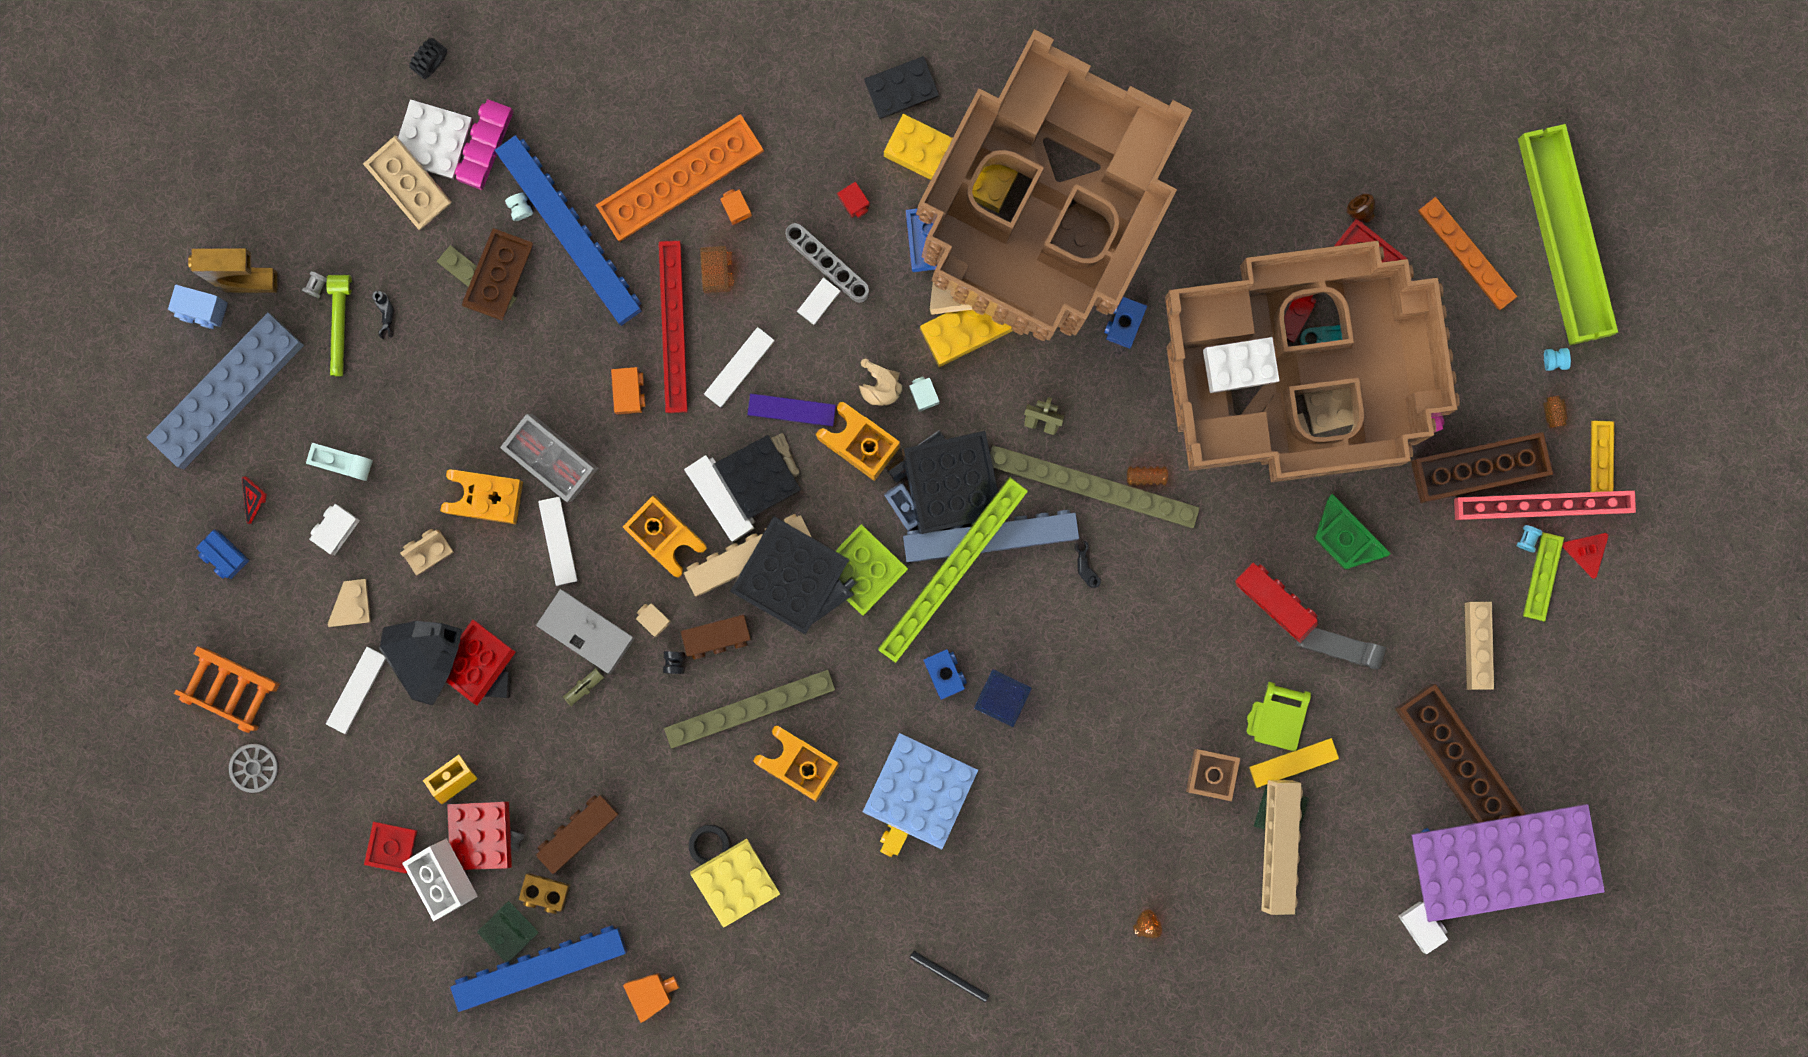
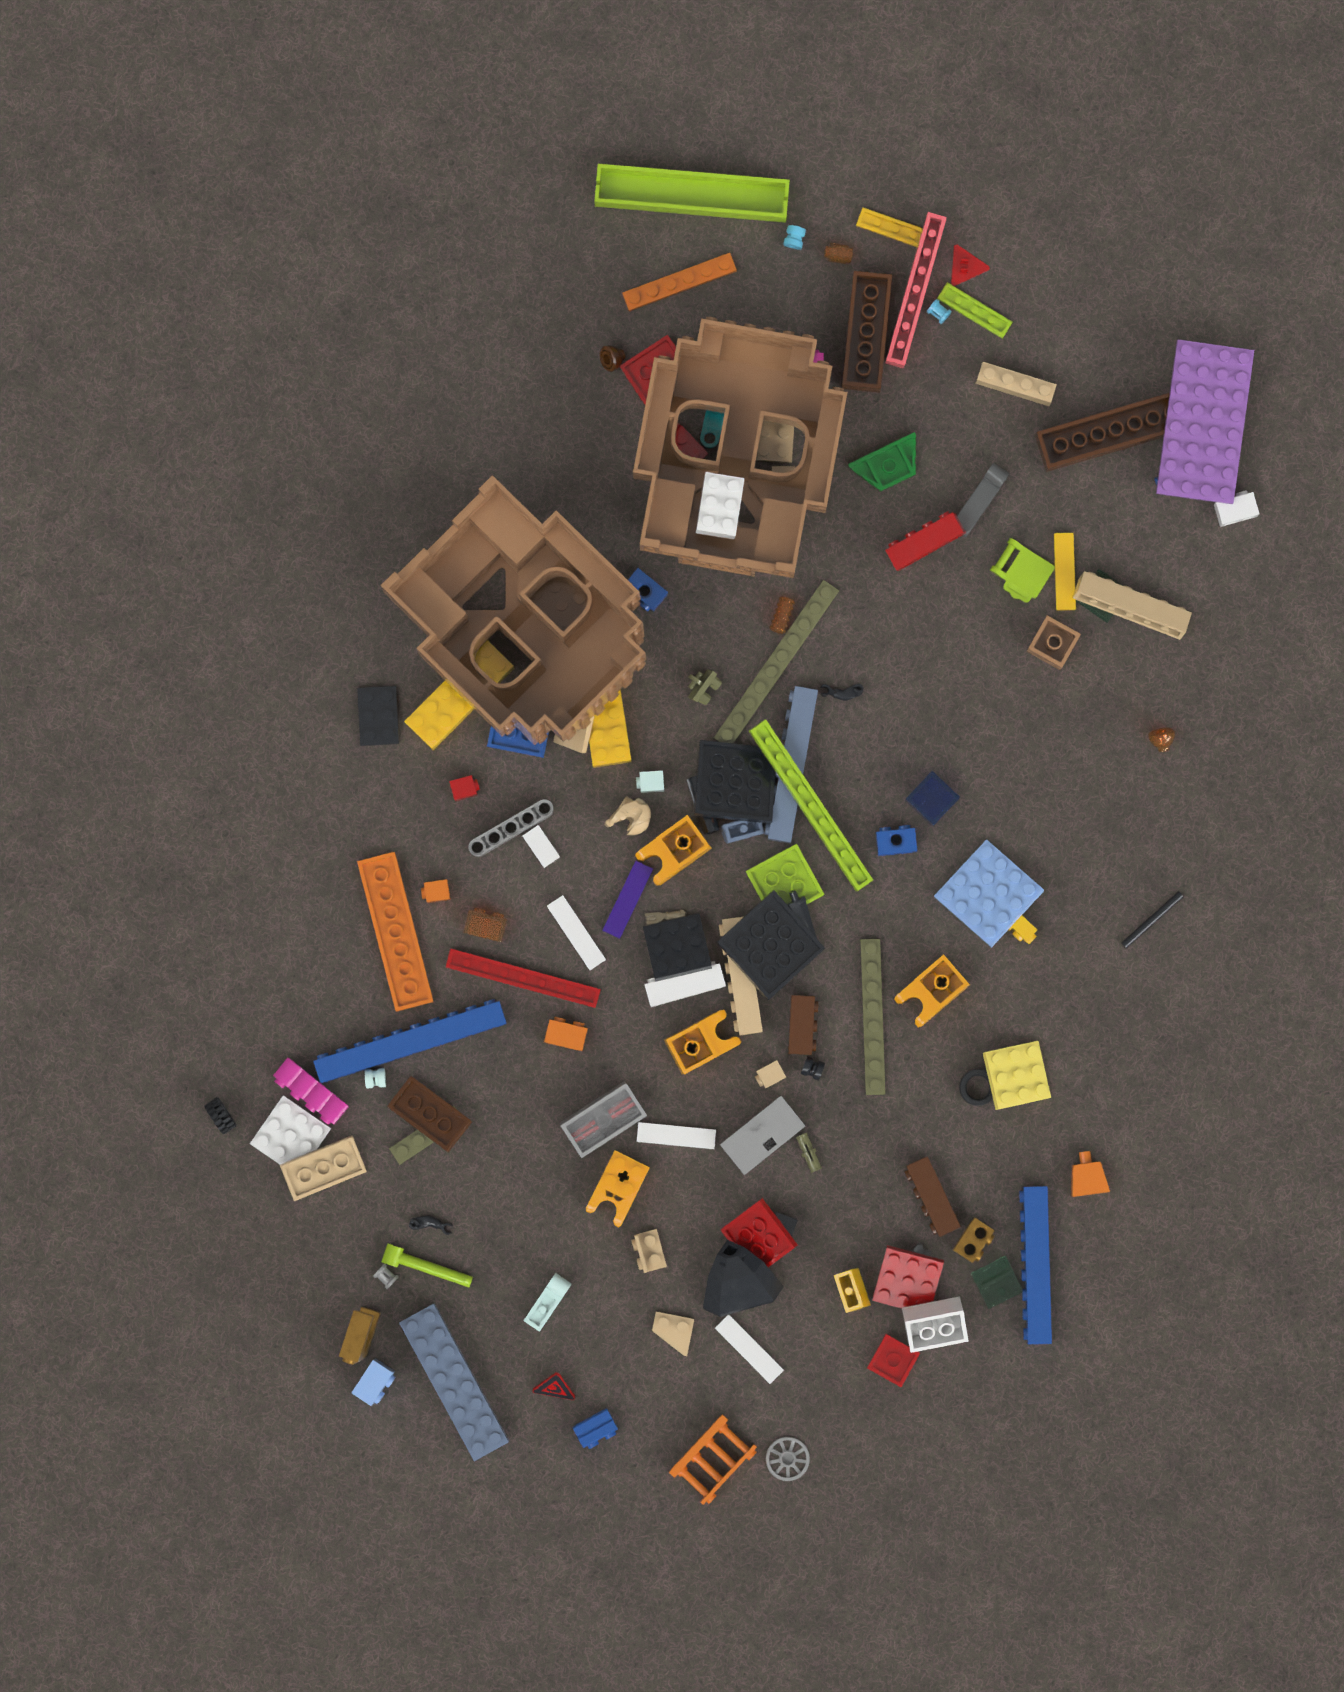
camera: 70 degrees left, 0 degrees up
(334, 529) = (604, 1324): white brick -> none

